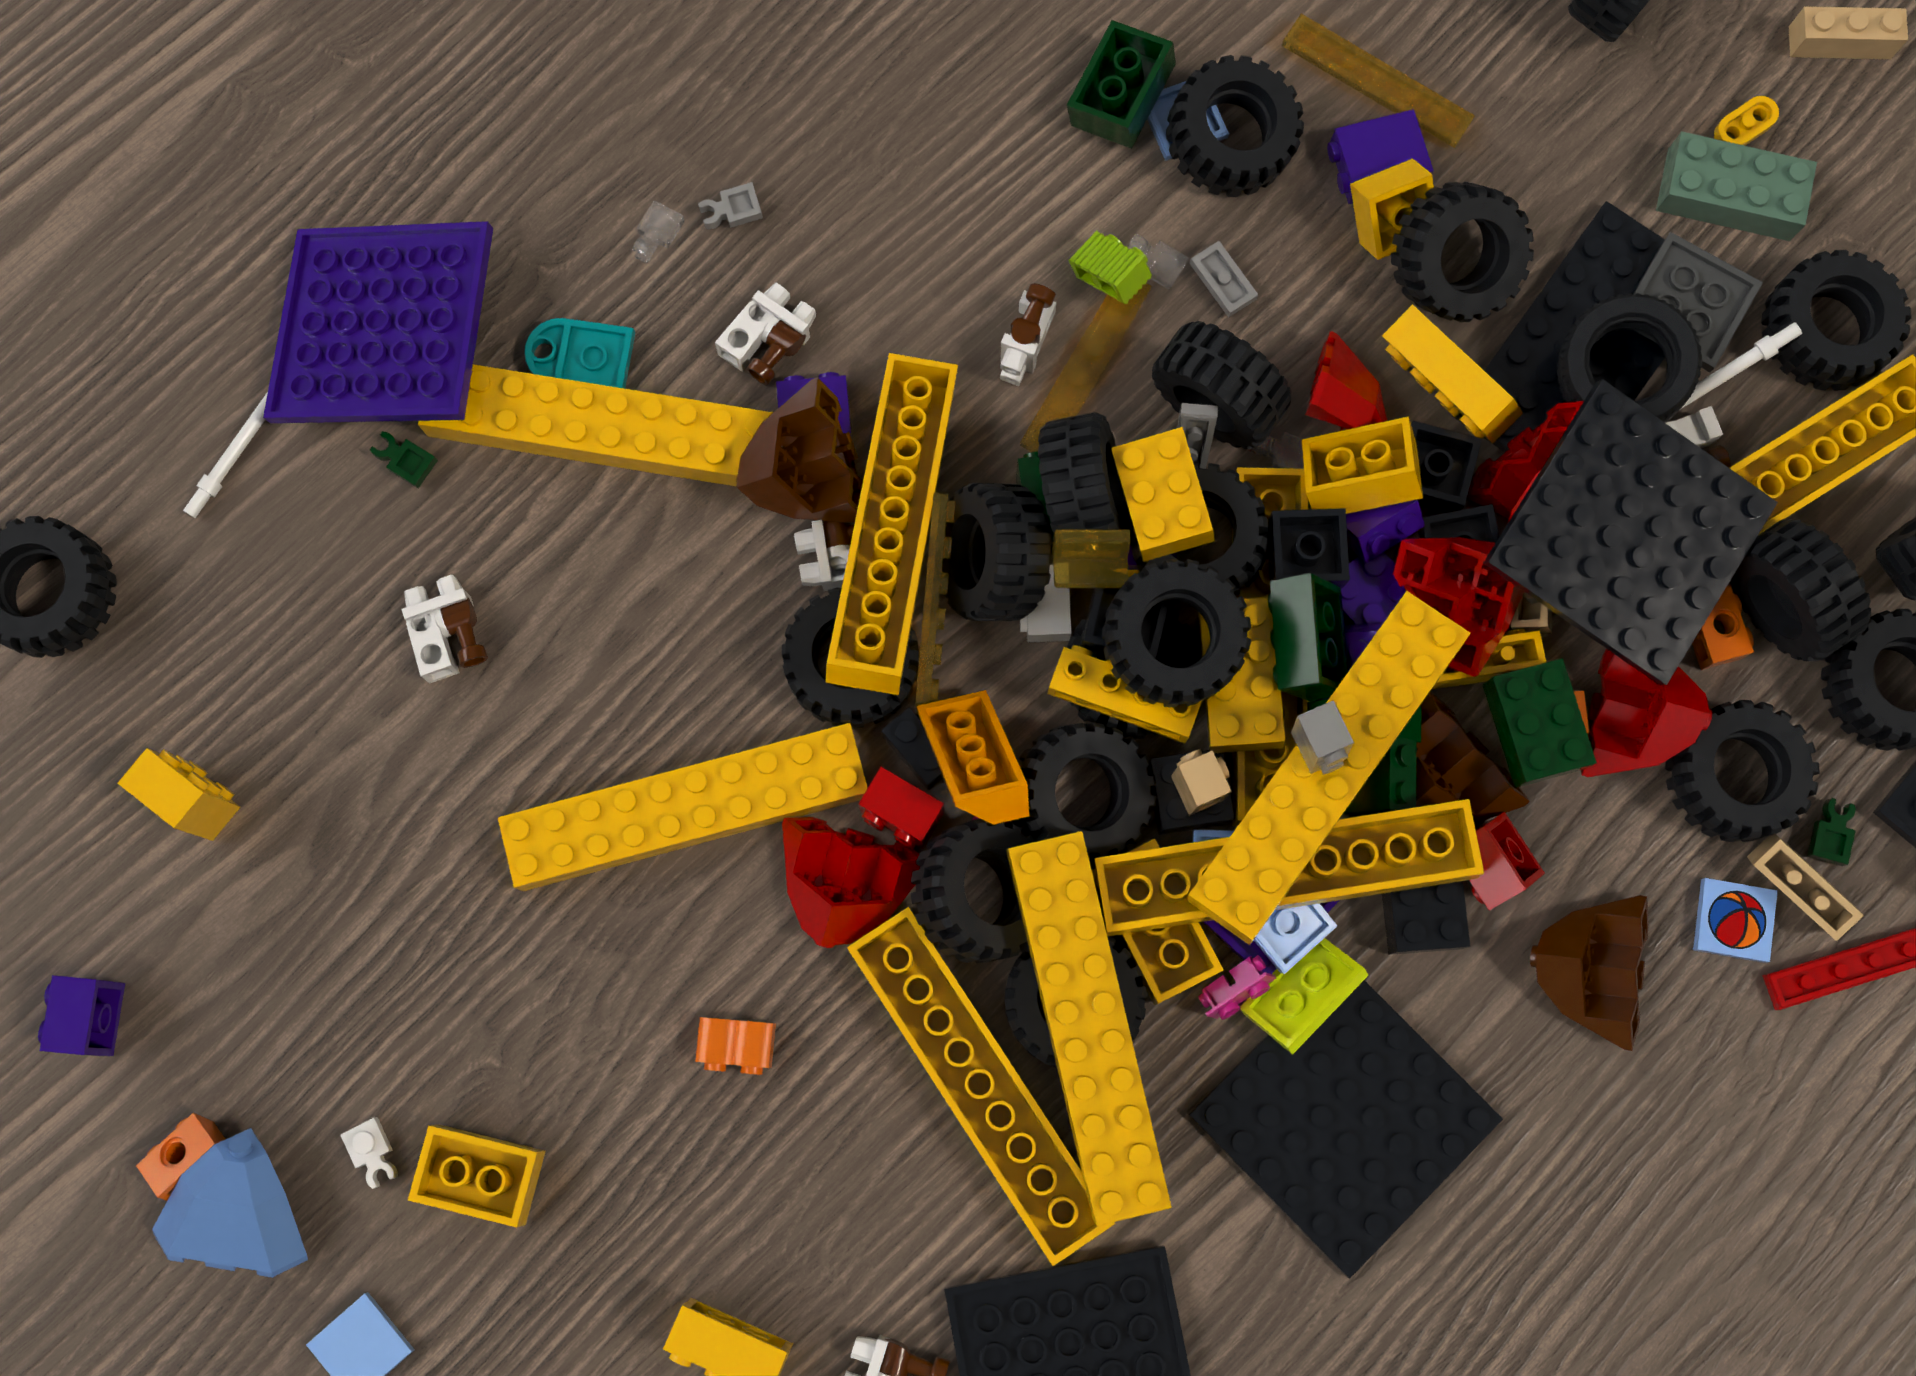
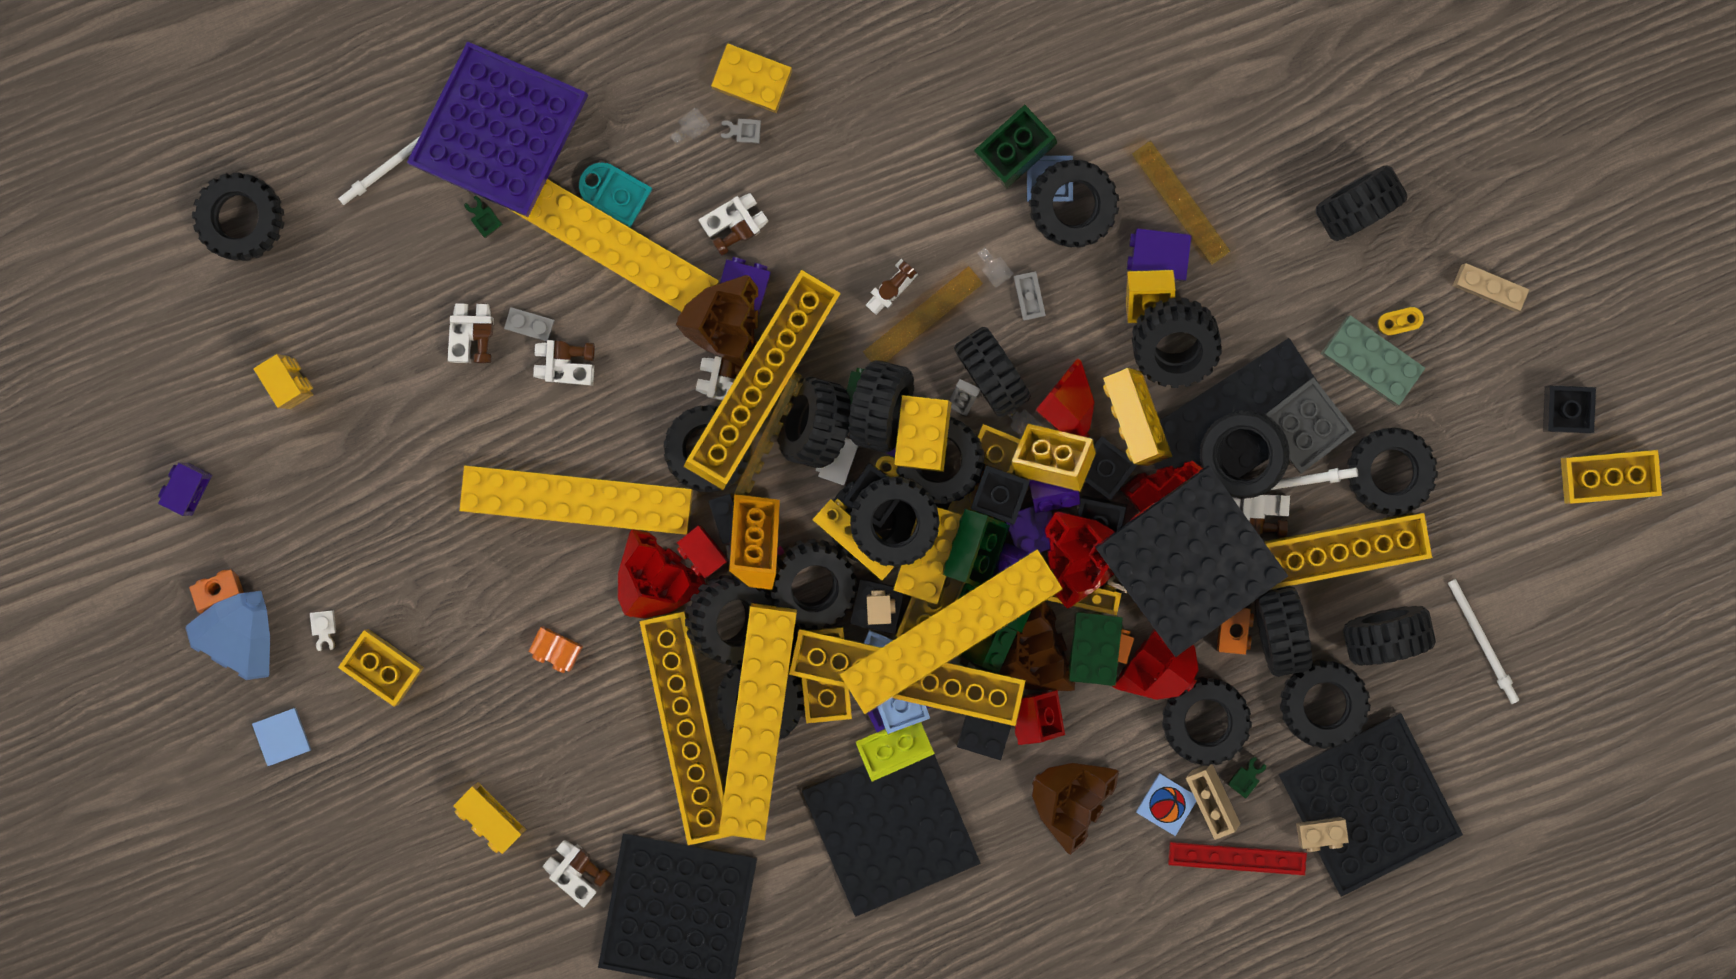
camera: 20 degrees right, 10 degrees up
(525, 584) = (529, 324): none -> light grey plate
(589, 624) = (559, 365): none -> white hips
(717, 131) = (751, 78): none -> yellow brick
(1090, 558) = (864, 457): clear yellow panel -> none
(1111, 266) = (960, 264): lime brick -> none
(1249, 983) = (848, 733): dark pink hinge -> none
(1322, 738) = (946, 620): light grey brick -> none

